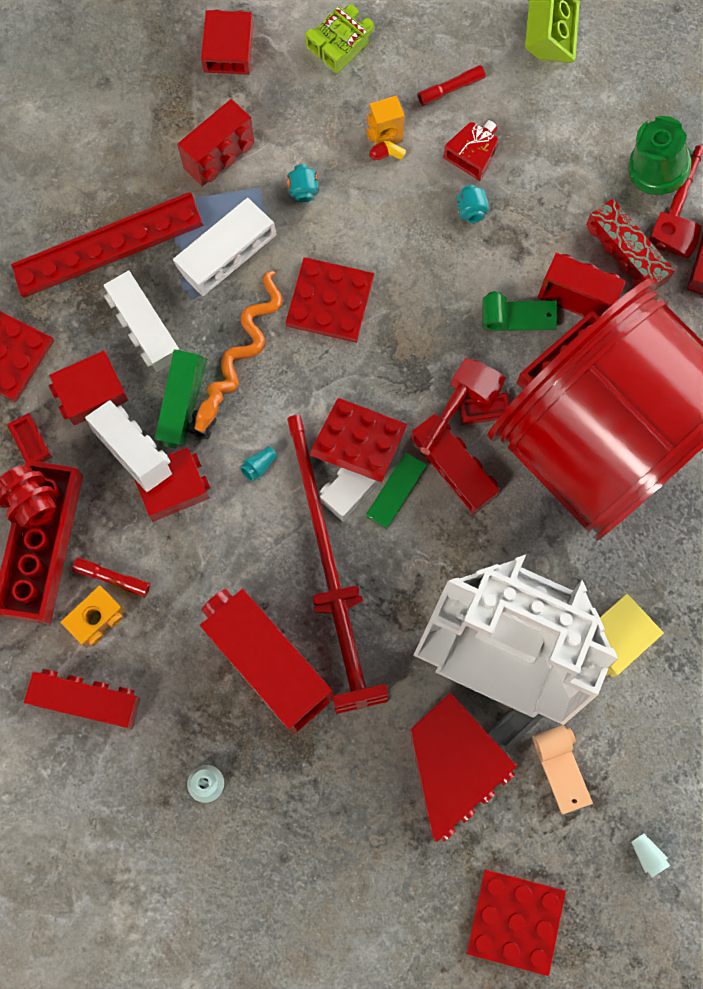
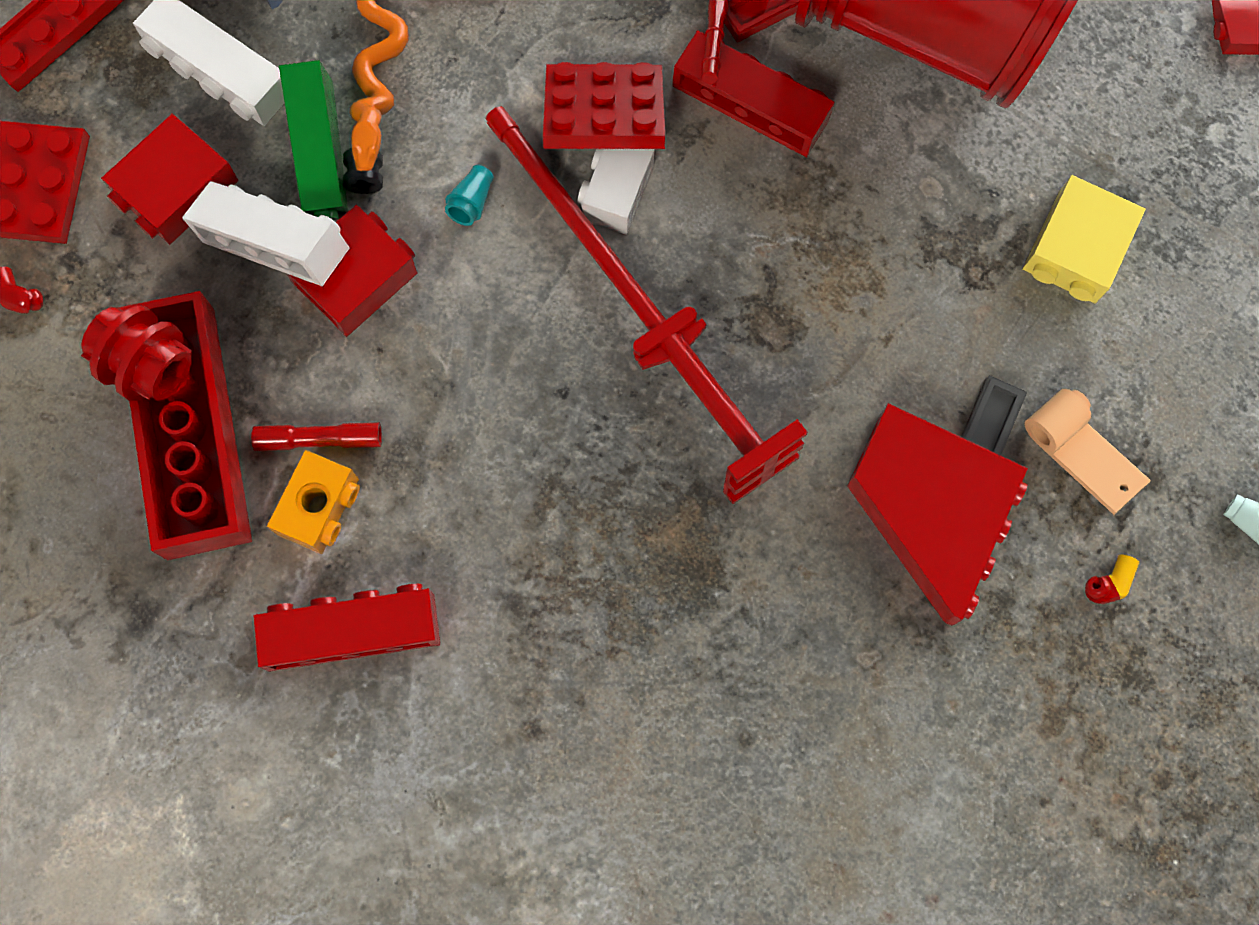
camera: 25 degrees left, 0 degrees up
(29, 439) = (105, 283): red tile -> none
(212, 788) = (599, 678): light aqua cone -> none
(265, 659) = (606, 450): red brick -> none
(396, 490) = (684, 162): green tile -> none
(516, 922) = (1116, 690): red plate -> none
(519, 641) = (1029, 293): white panel -> none
(542, 858) = (1113, 586): none -> arm

